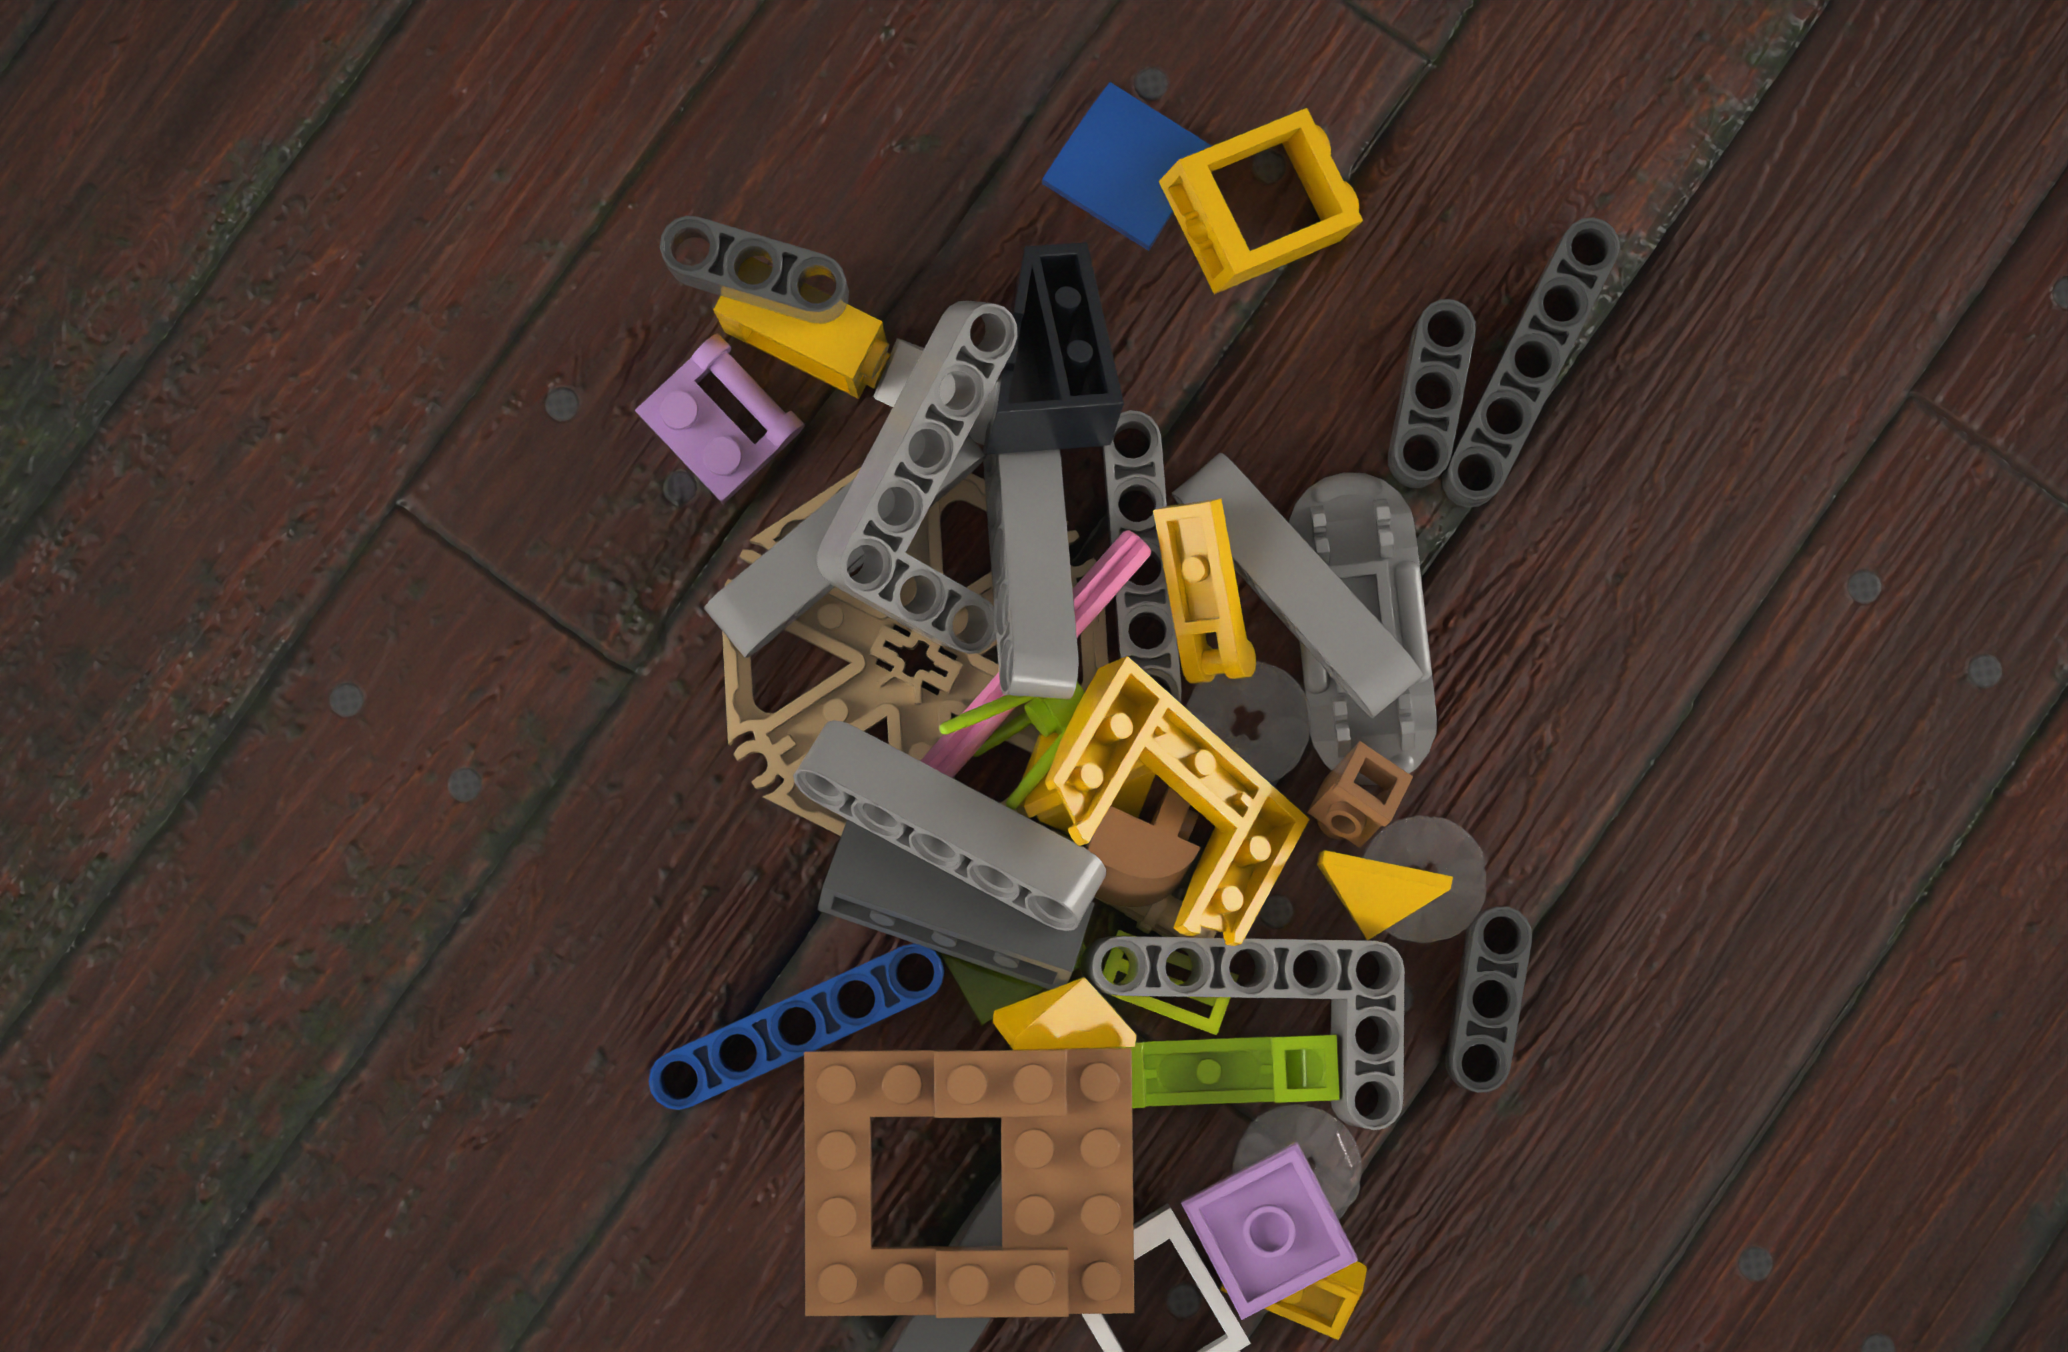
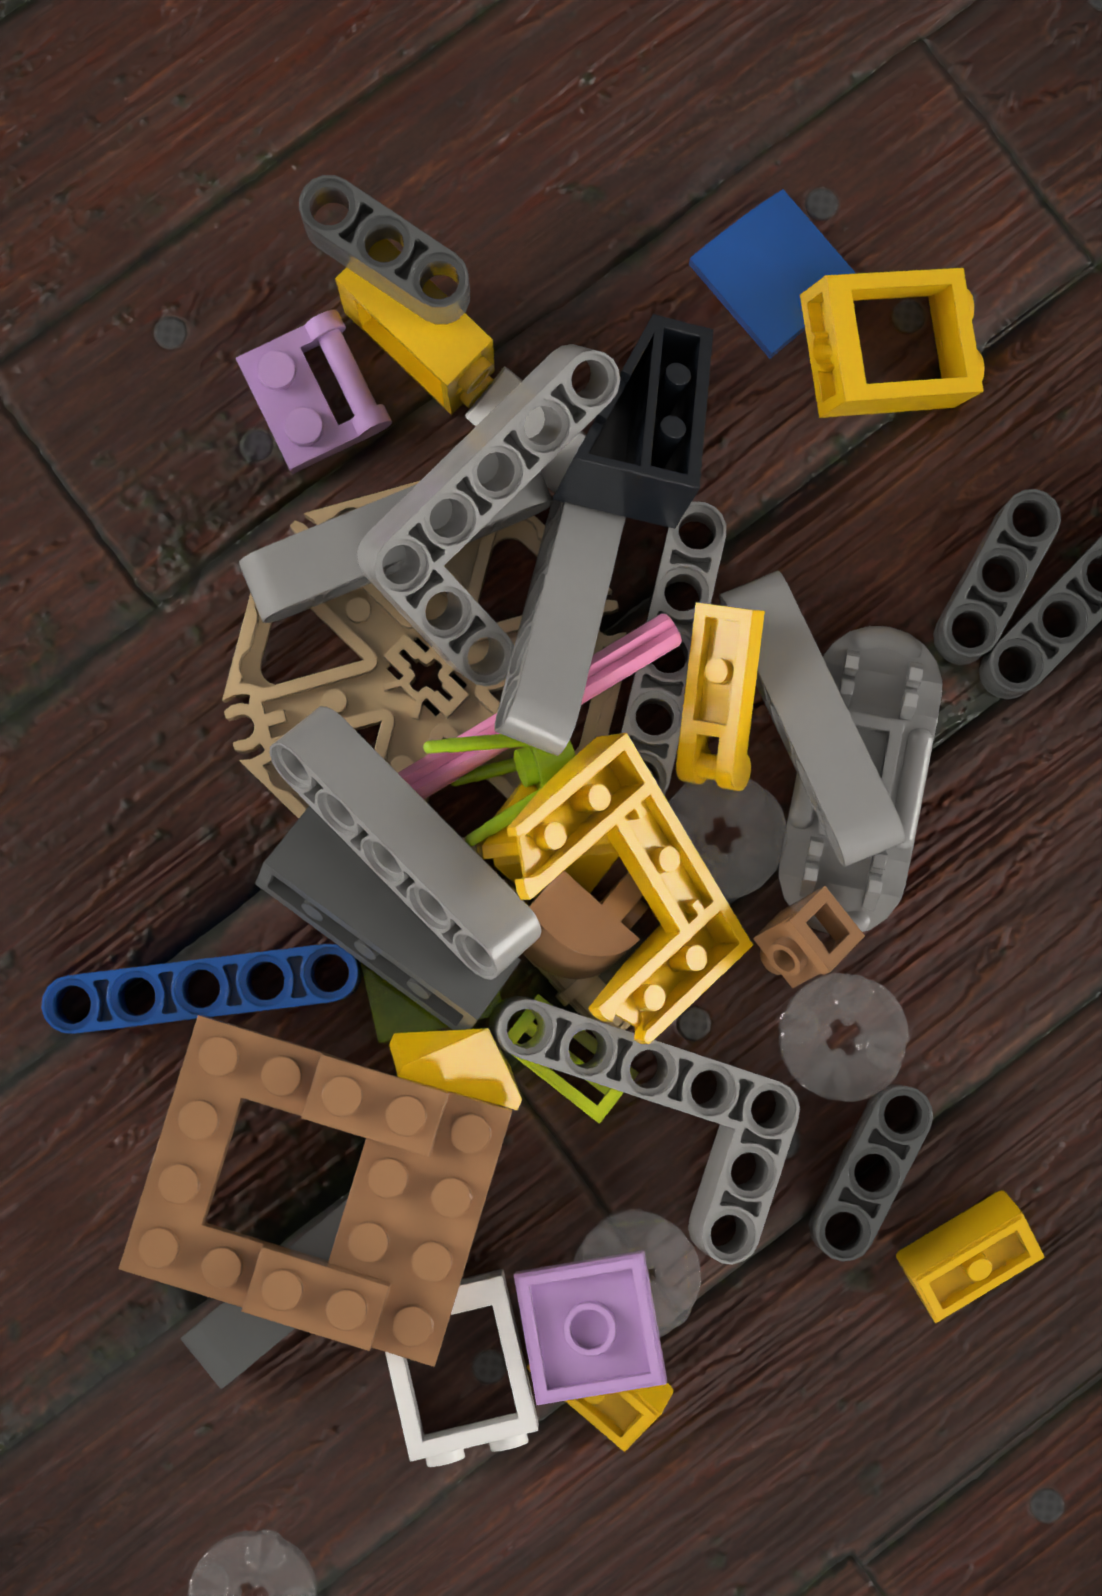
camera: 15 degrees right, 0 degrees up
(1235, 1070) = (605, 1163): lime slope -> none
(1378, 891) = (797, 1036): yellow slope -> none
(1608, 1049) = (969, 1255): none -> yellow slope

